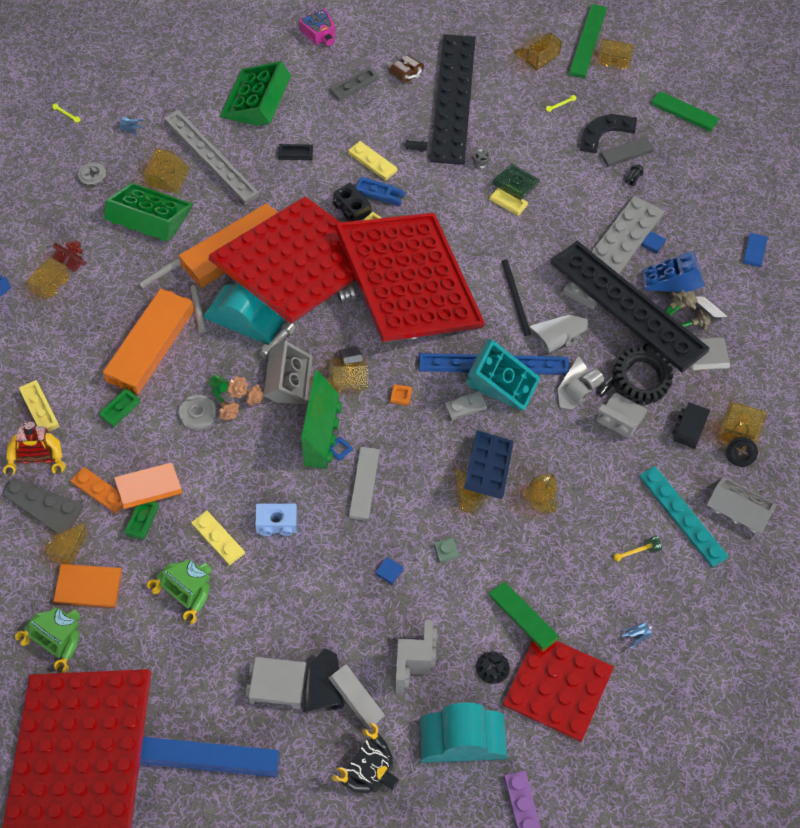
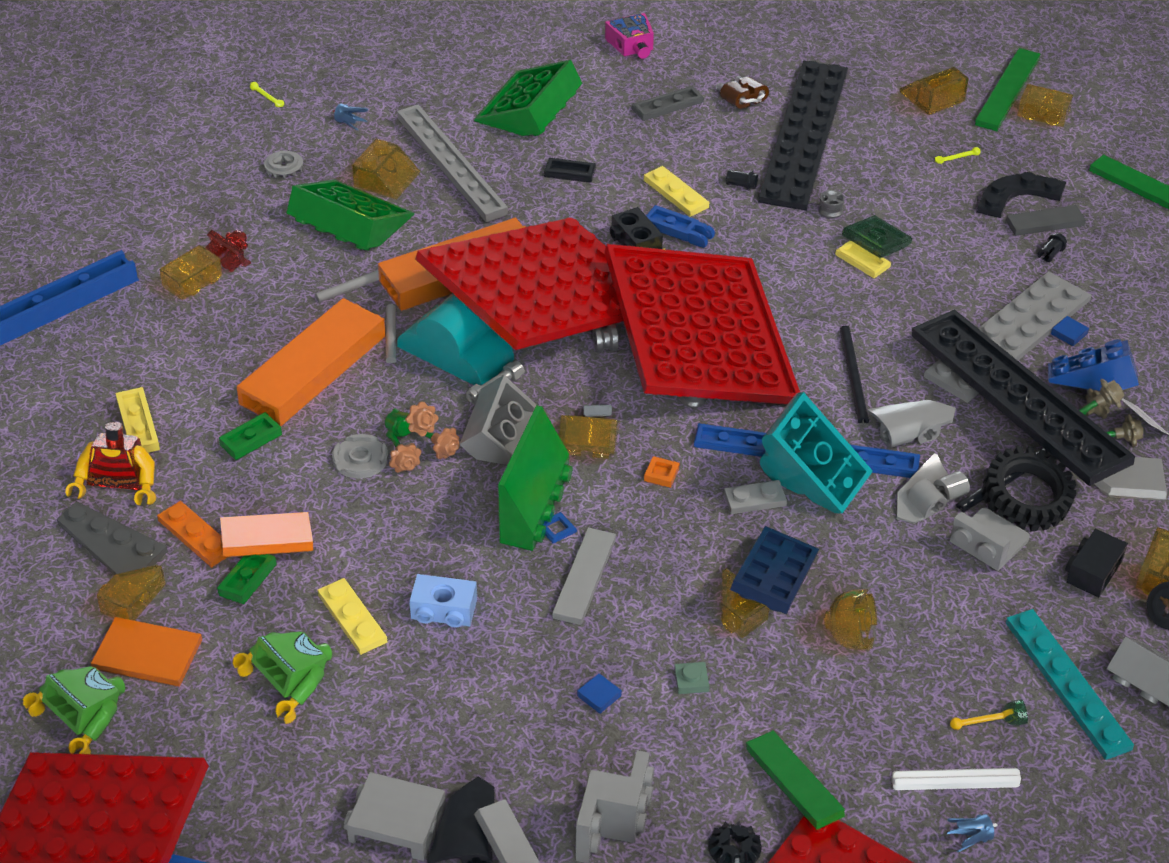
camera: 10 degrees right, 15 degrees down
(622, 597) = (956, 779): none -> white axle

